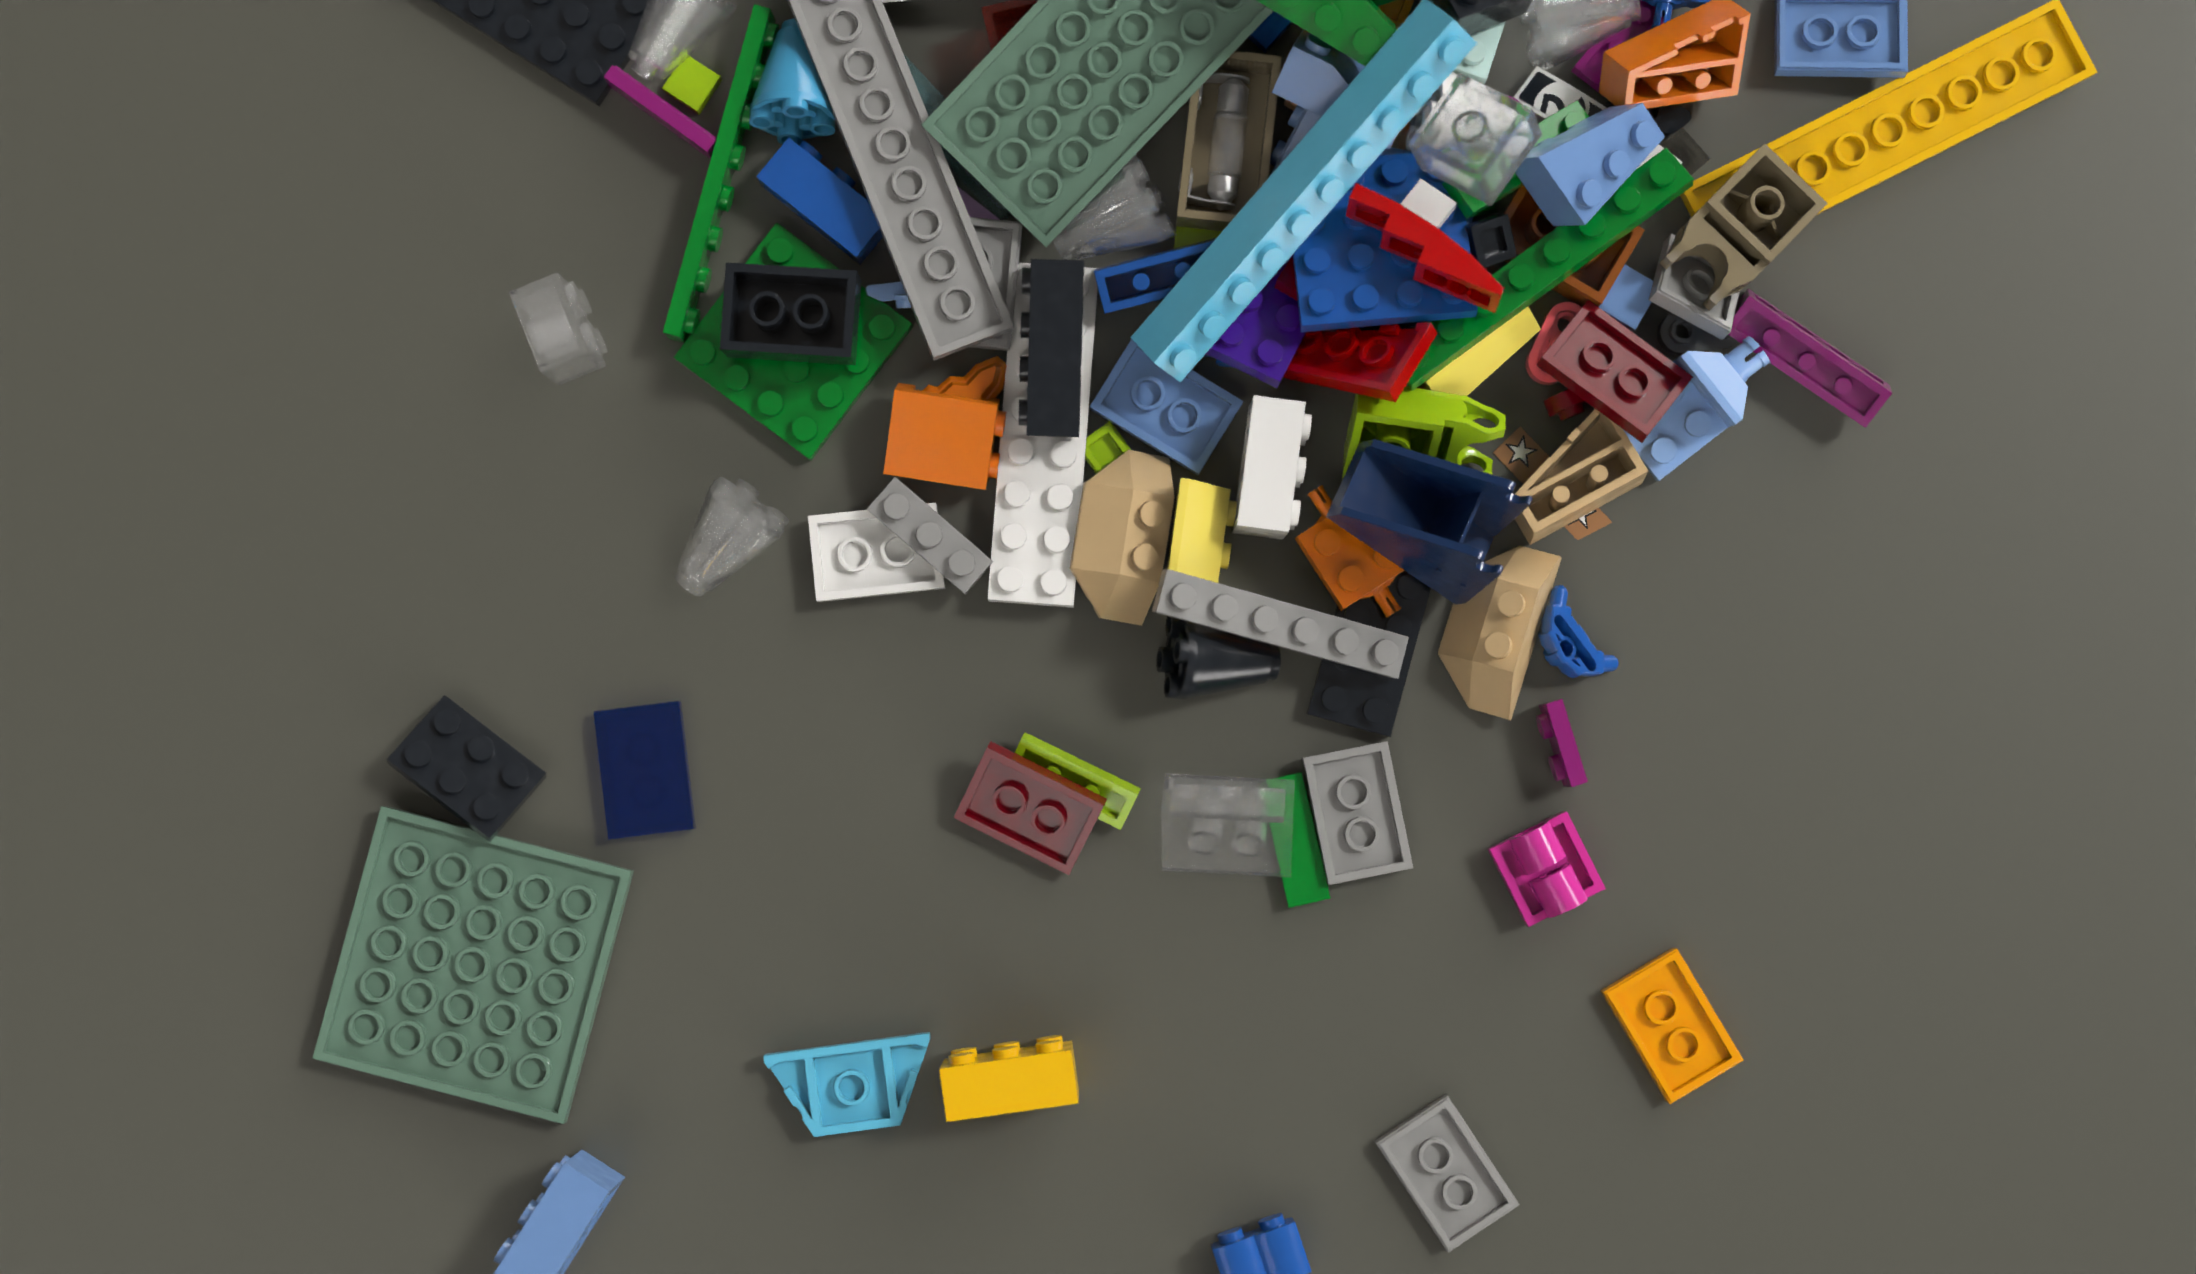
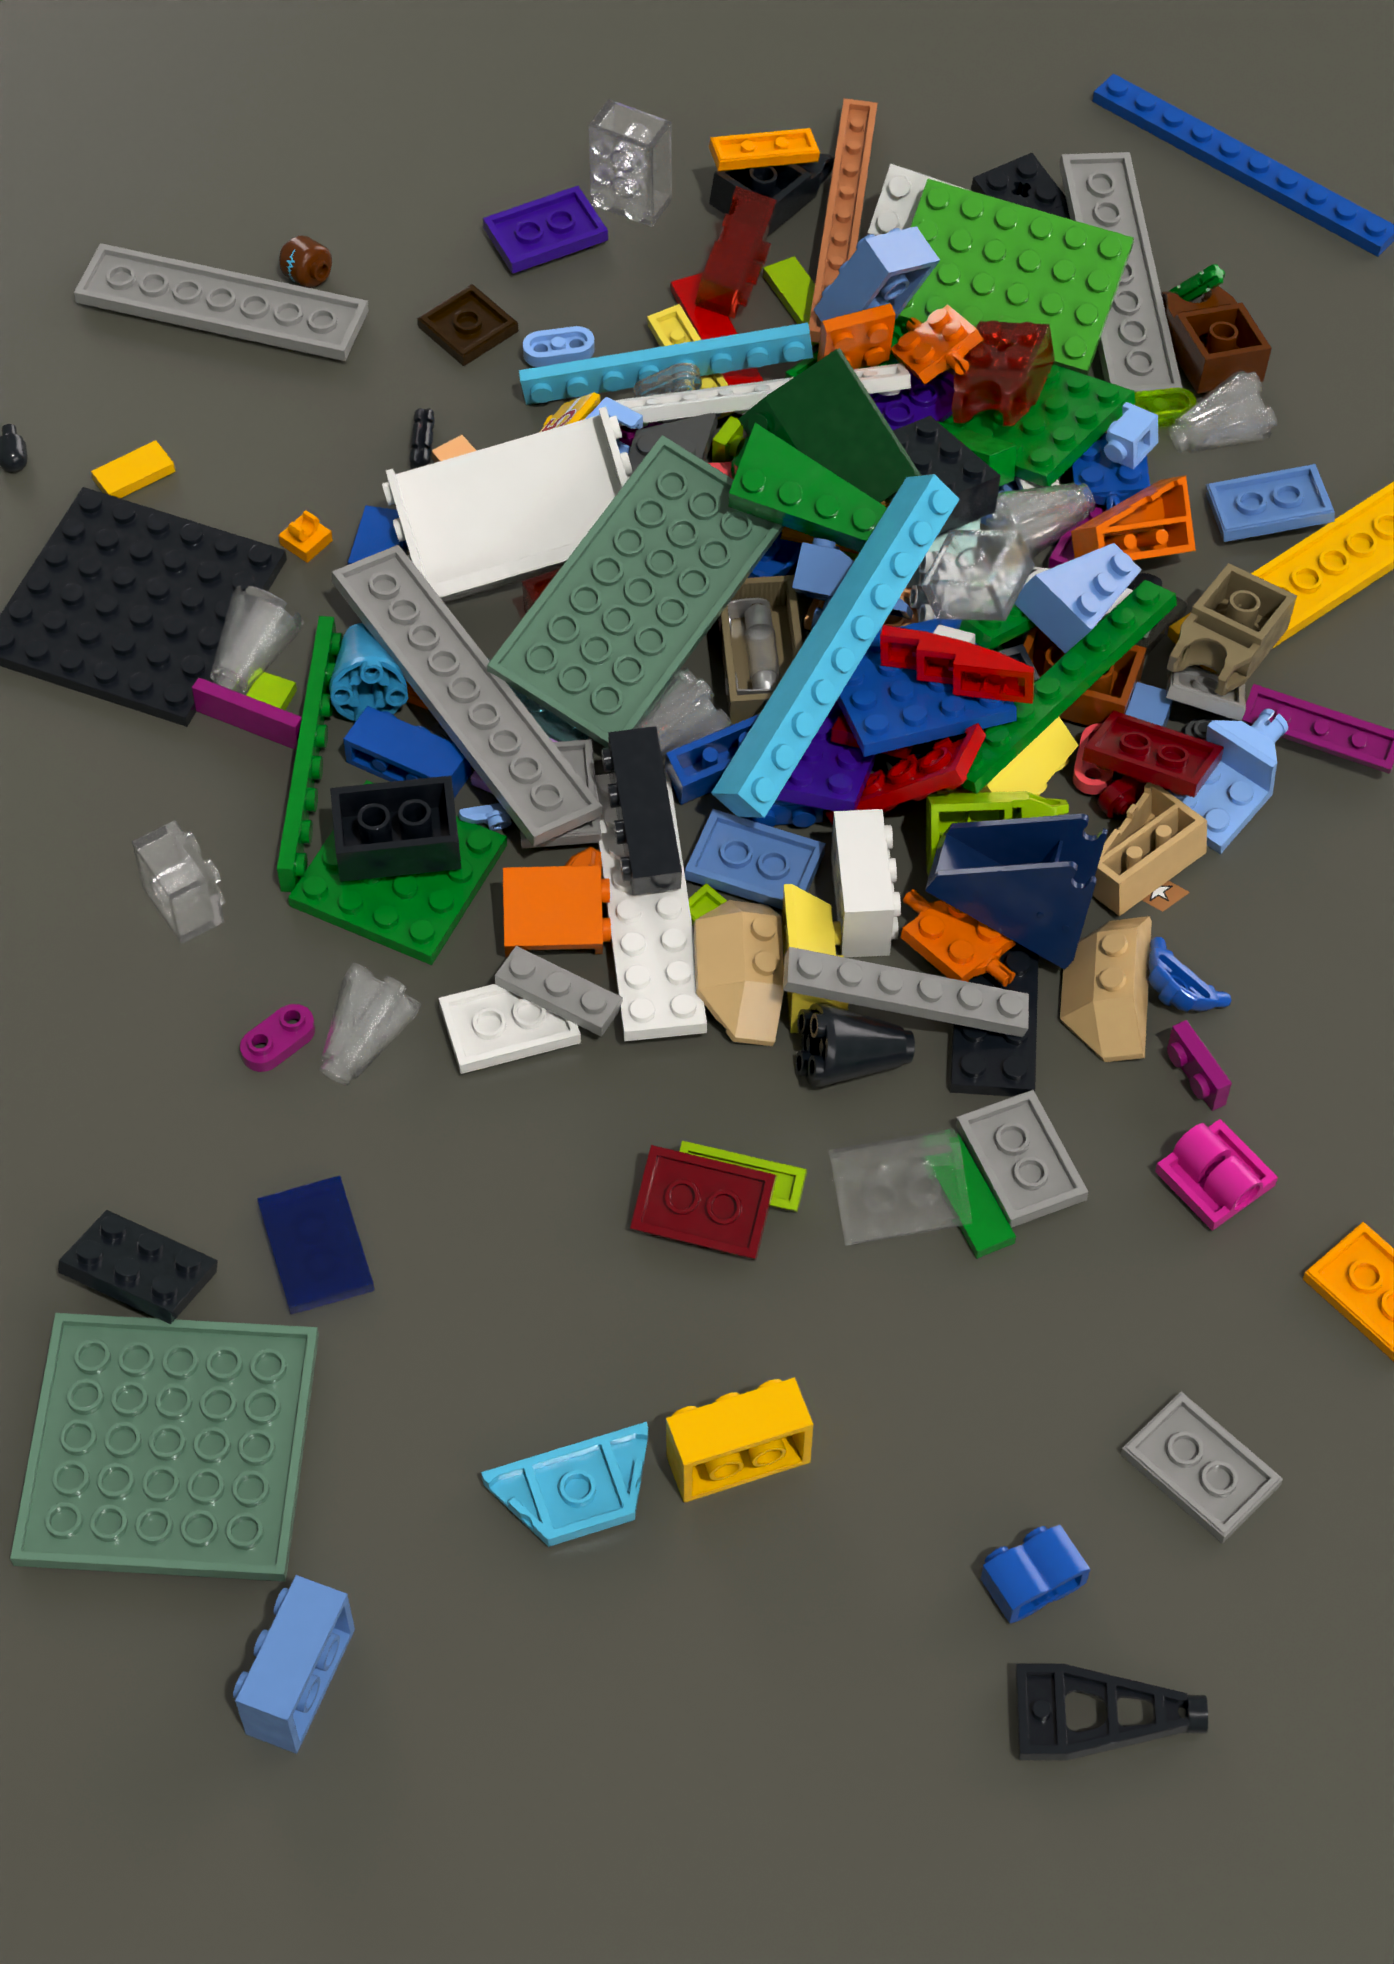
camera: 10 degrees left, 30 degrees down
(640, 524) = (281, 1037): none -> magenta plate

